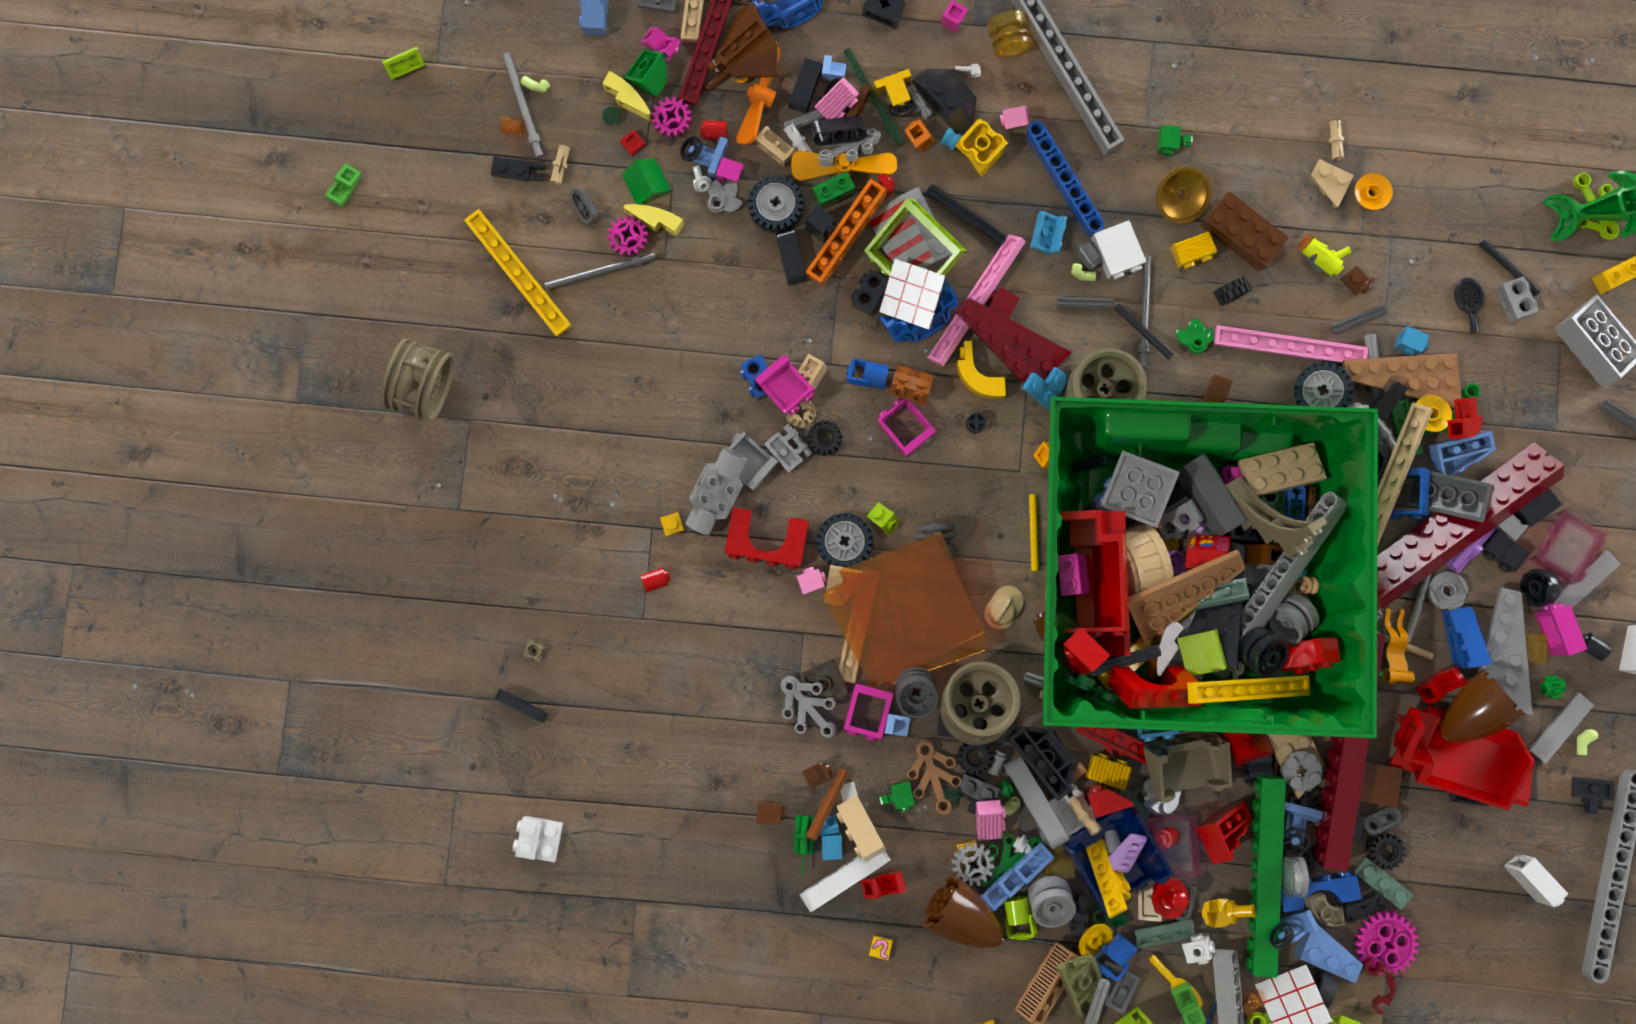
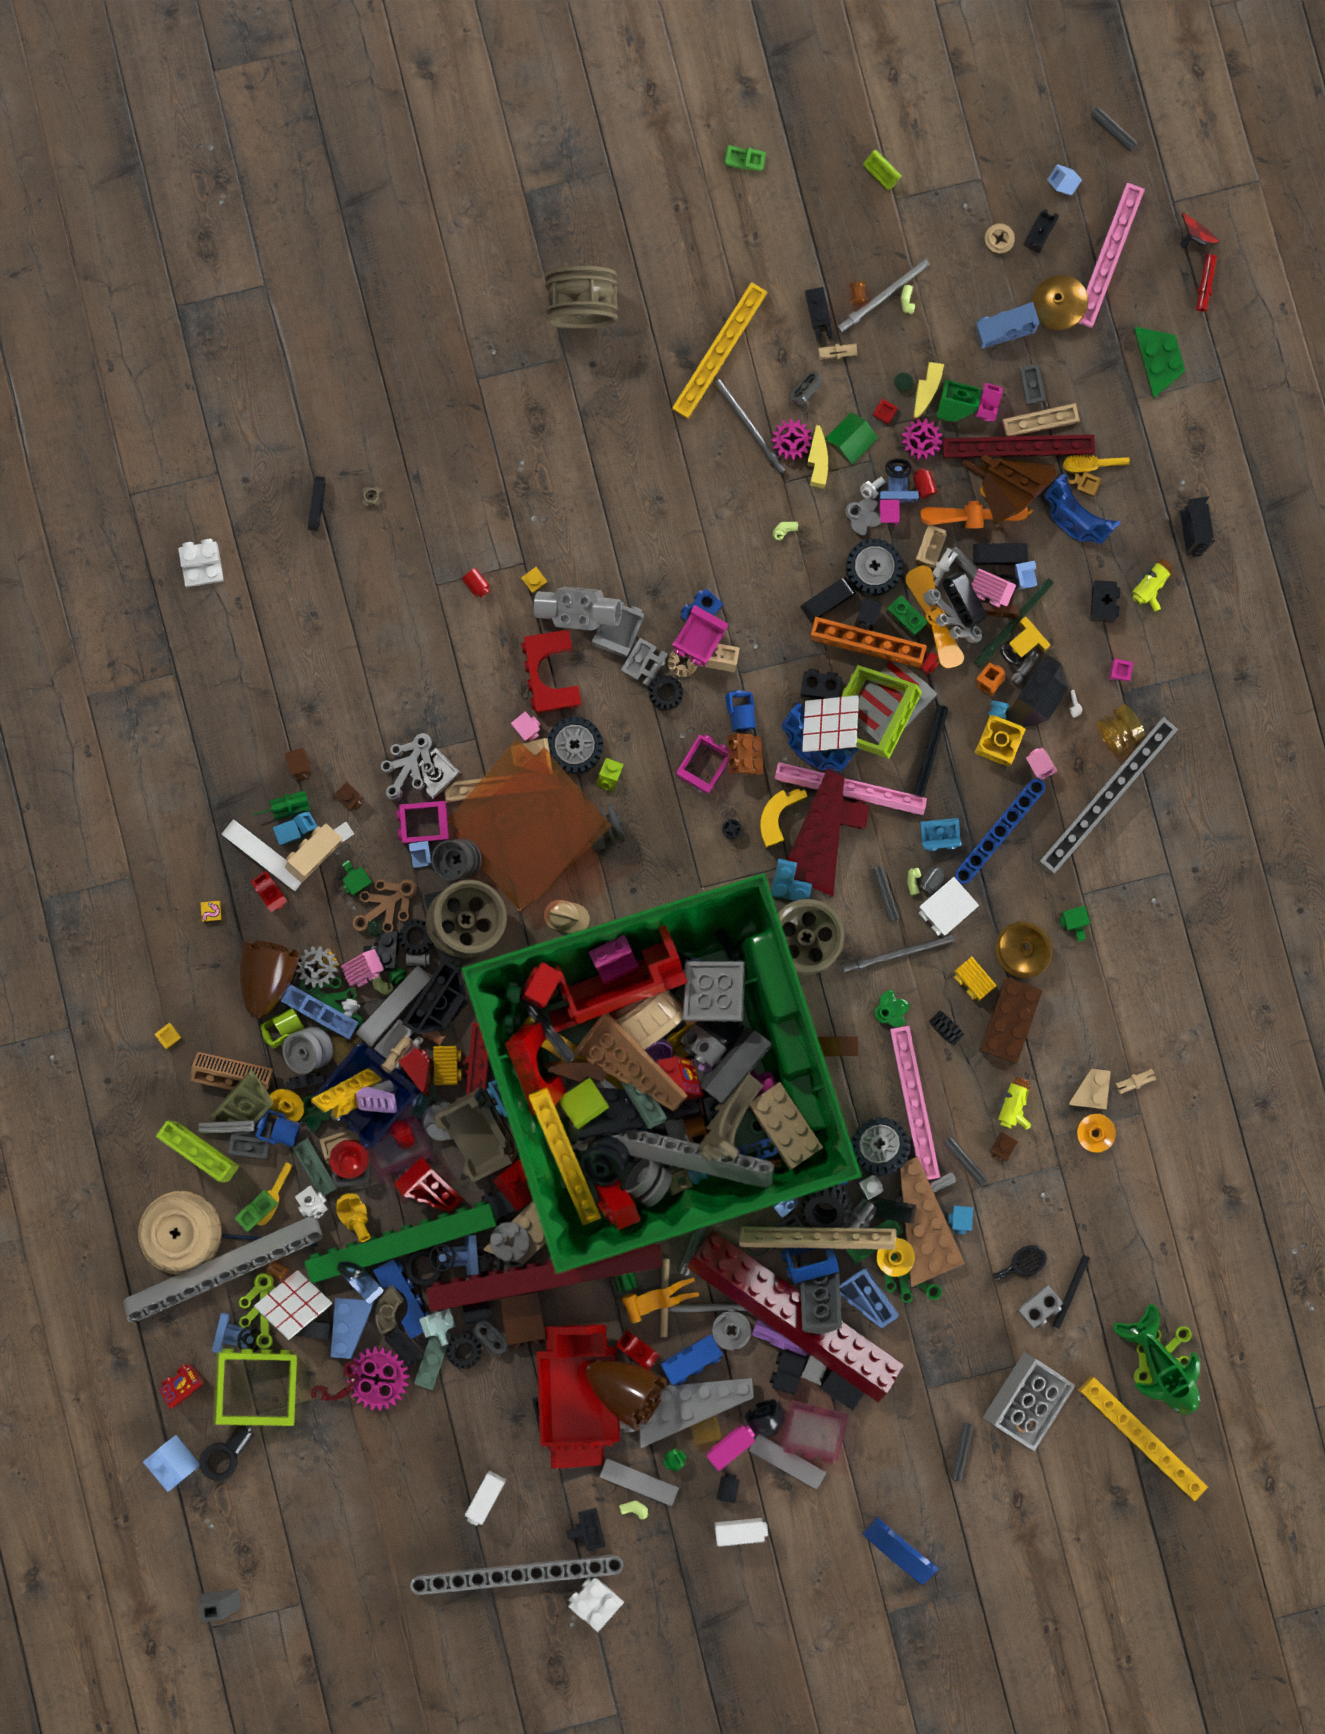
camera: 65 degrees right, 0 degrees up
(708, 275) = (782, 528): none -> yellowish green arm
(827, 804) = (324, 814): dark orange axle -> none
(1143, 331) = (876, 958): black bar -> none
(1295, 877) = (408, 1265): clear piece -> none
(1309, 585) = (685, 1188): light nougat bush -> none
(1358, 870) = (437, 1325): none -> light aqua plate
(1467, 420) = (897, 1292): red brick -> none

